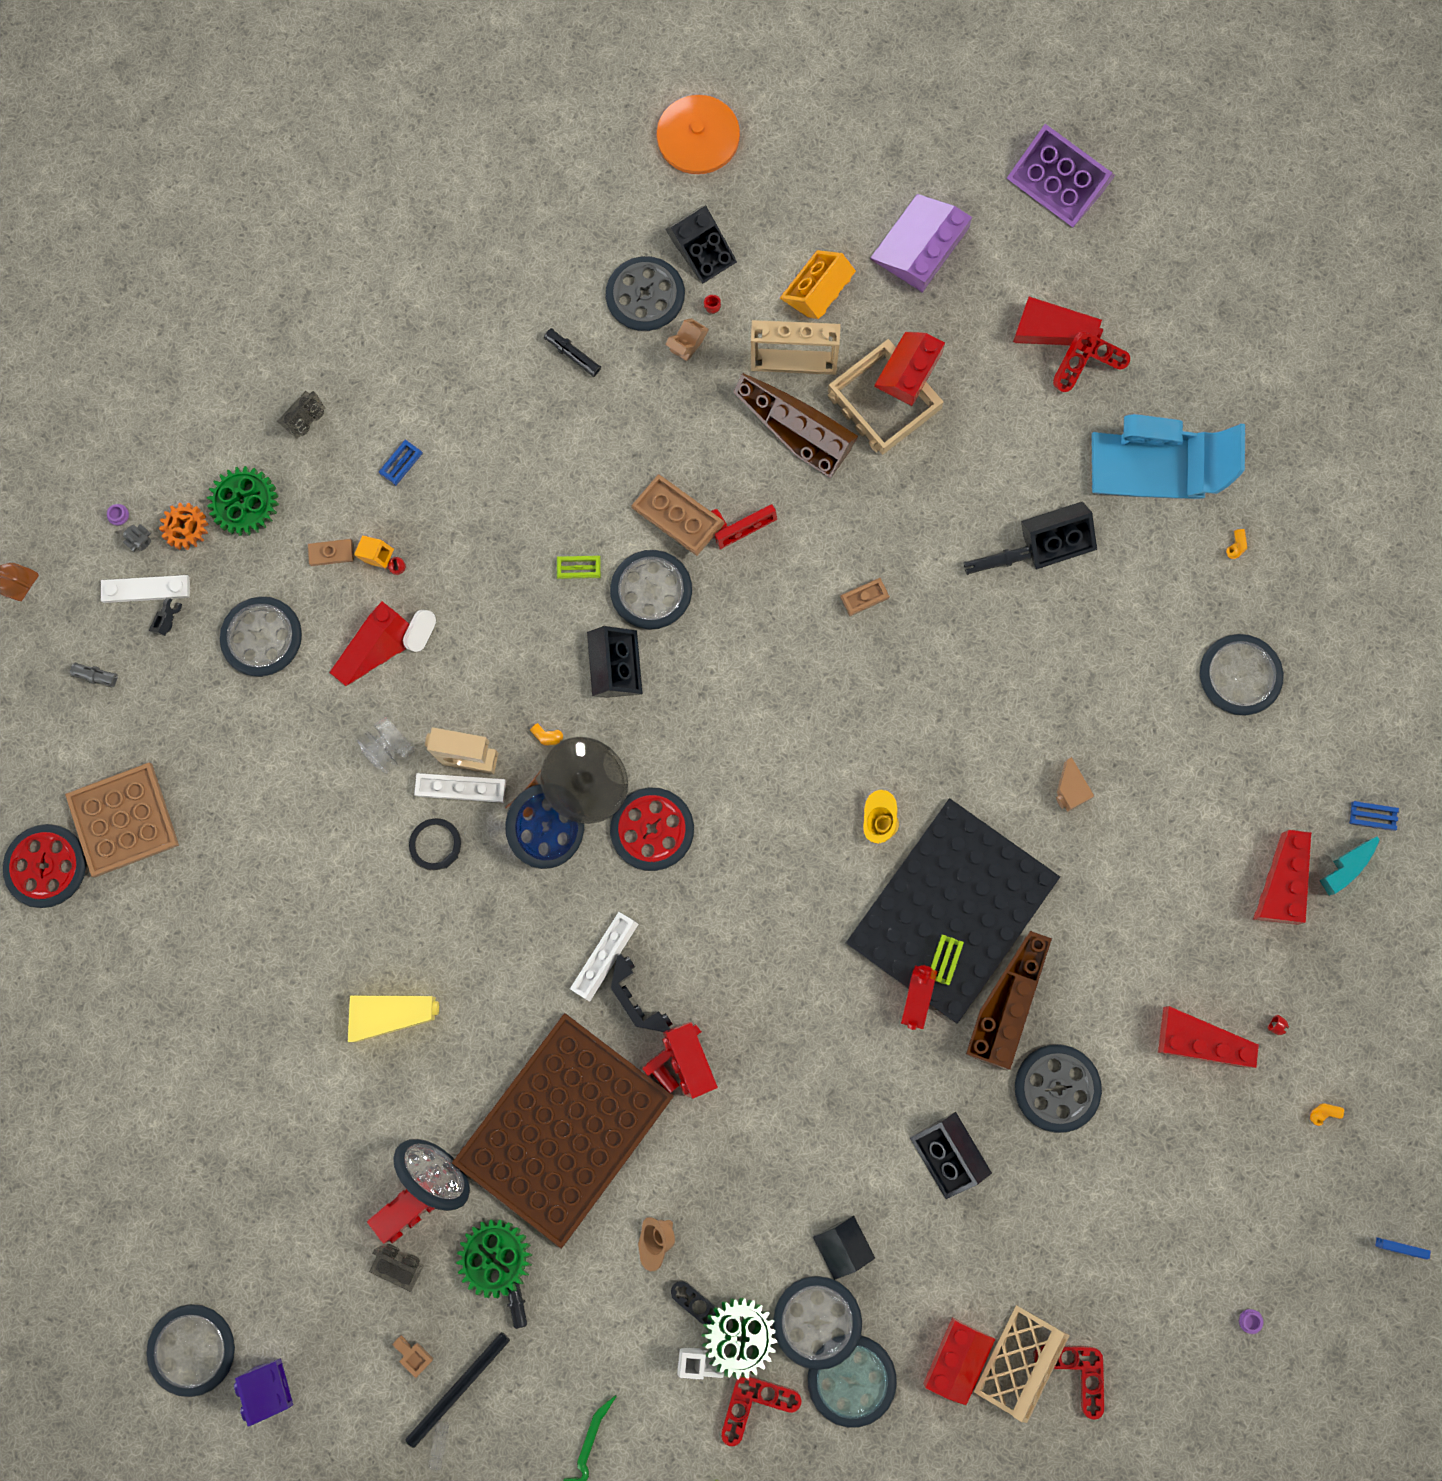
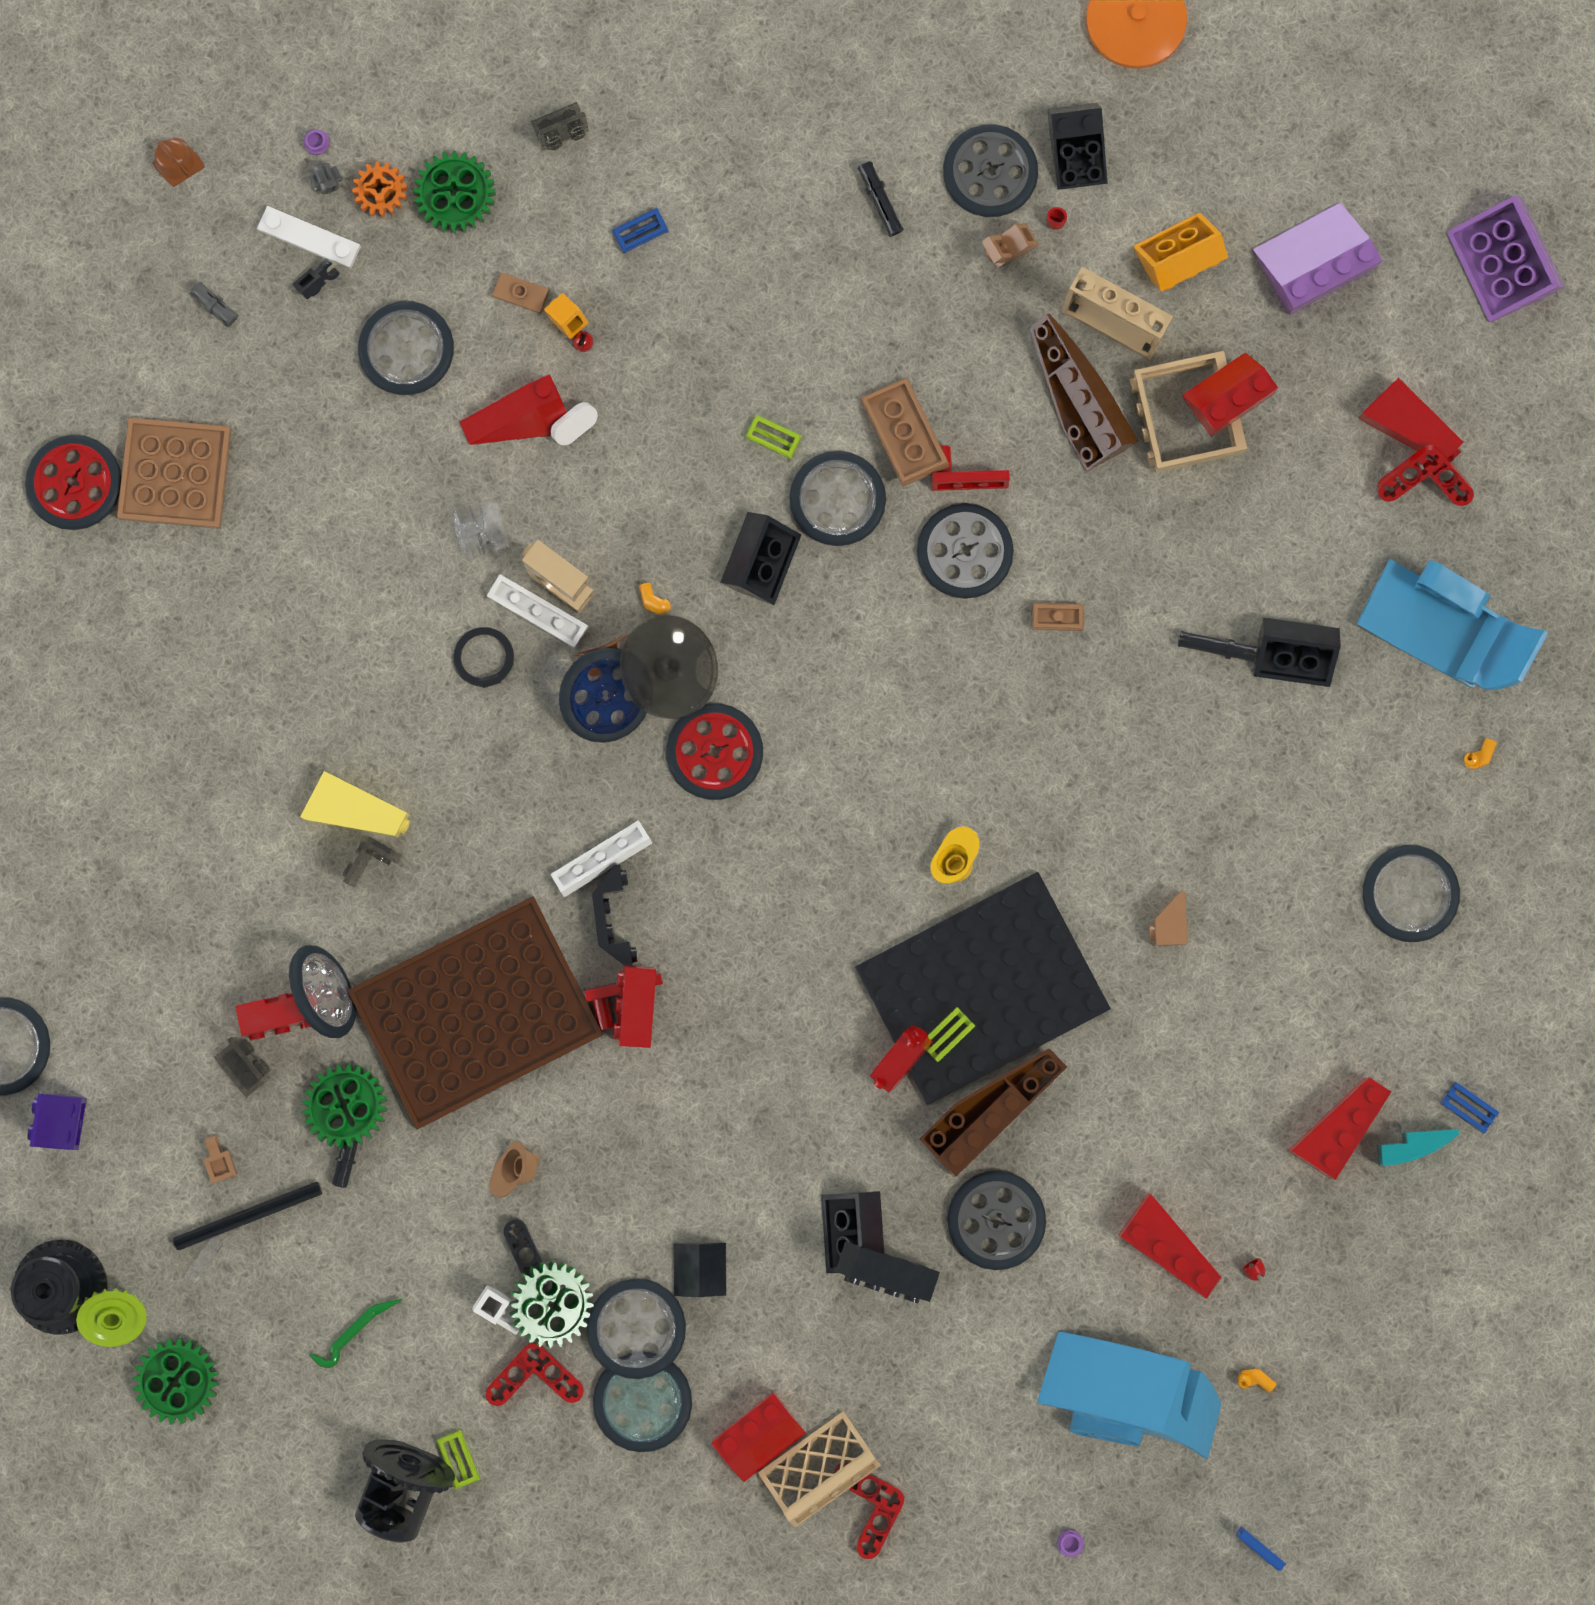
camera: 20 degrees right, 5 degrees up
(413, 1044) = (366, 850): none -> clear smoke bracket
(782, 607) = (965, 585): none -> wedge
(996, 1174) = (887, 1272): none -> black brick
(1235, 1175) = (1130, 1393): none -> dark azure beam

